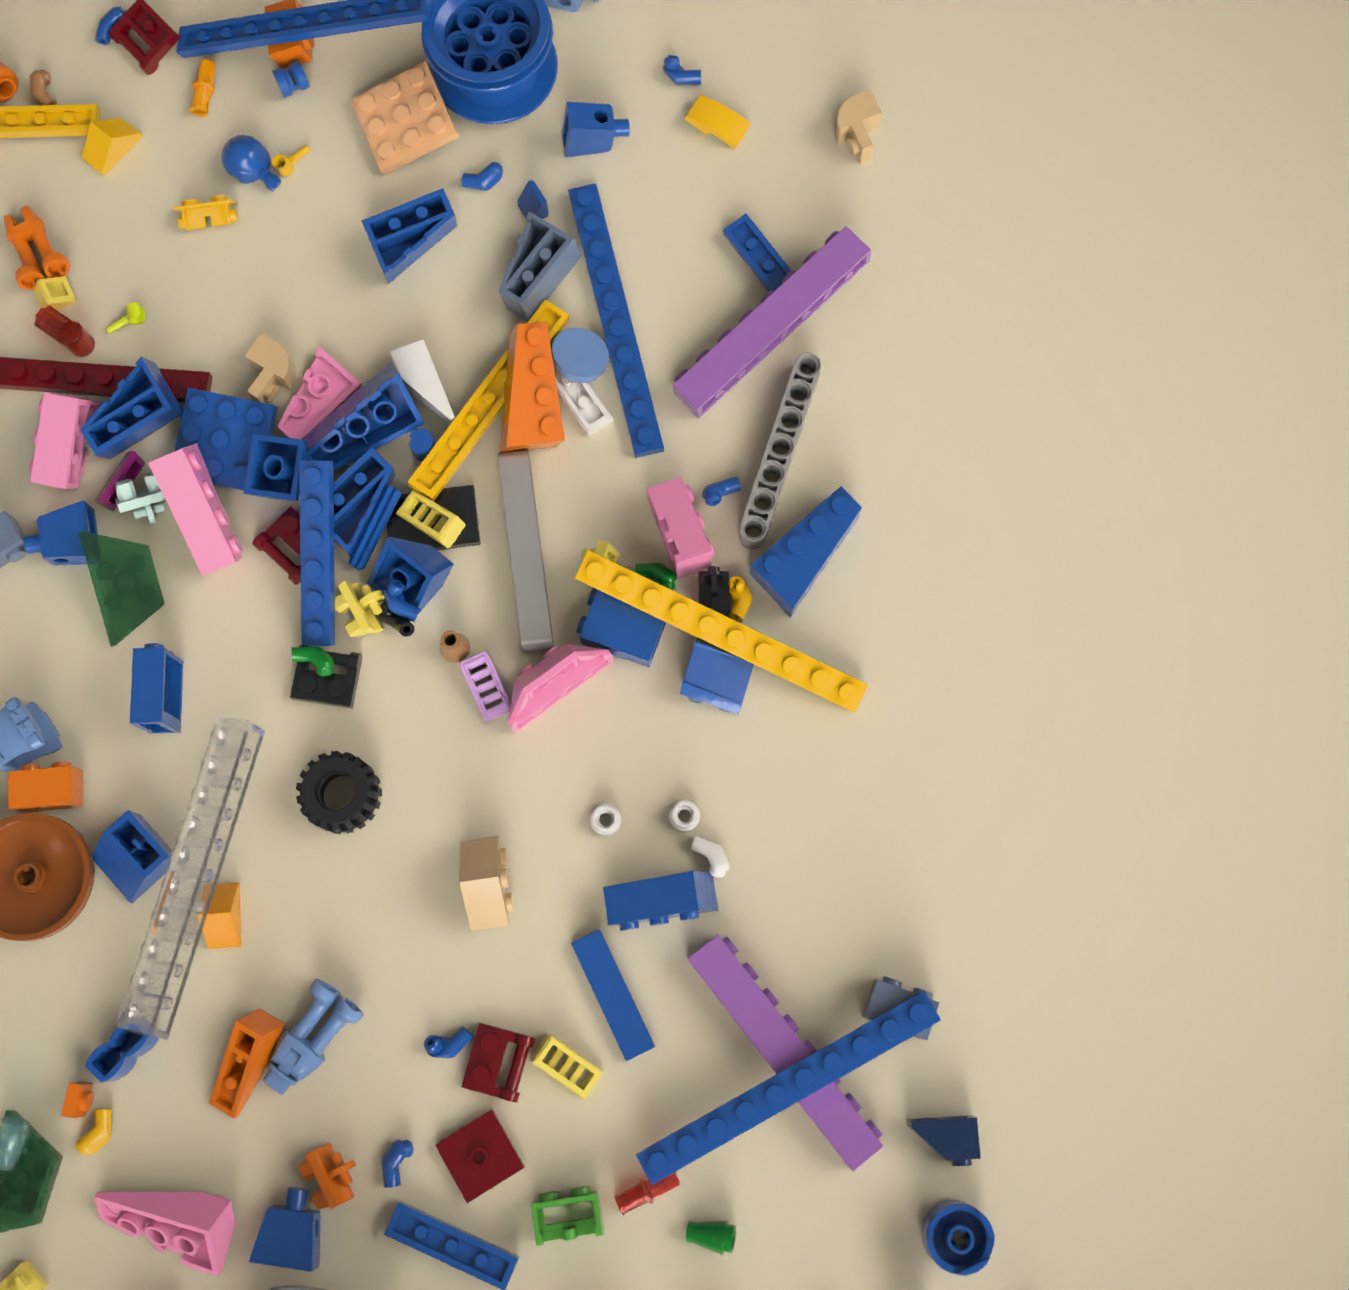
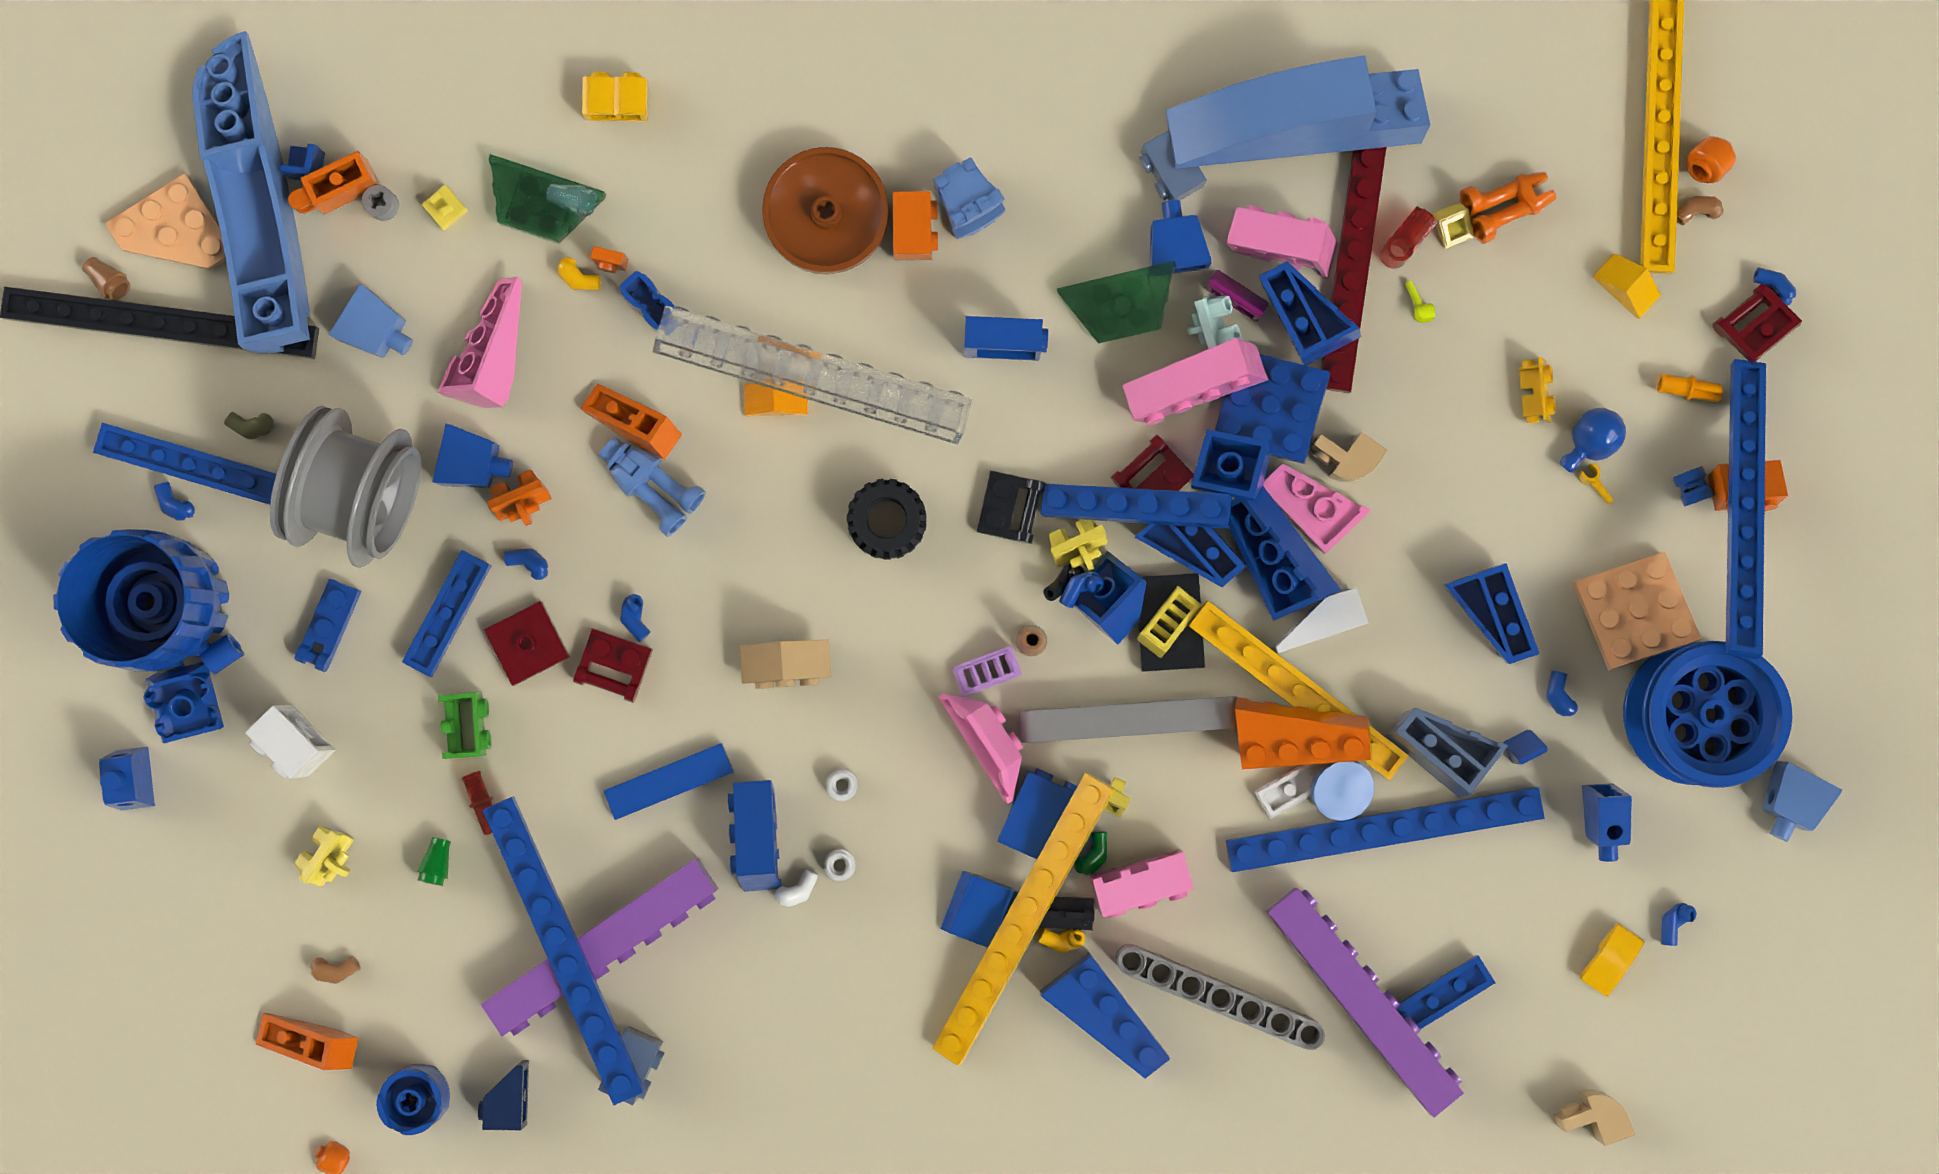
camera: 90 degrees right, 10 degrees up
(132, 855) = (839, 312): blue slope -> none
(316, 656) = (1027, 501): green arm -> none
(374, 527) = (1164, 564): blue axle -> none
(421, 443) = (1251, 617): blue piece -> none
(590, 1080) = (621, 710): light yellow slope -> none
(713, 492) = (1183, 929): blue arm -> none

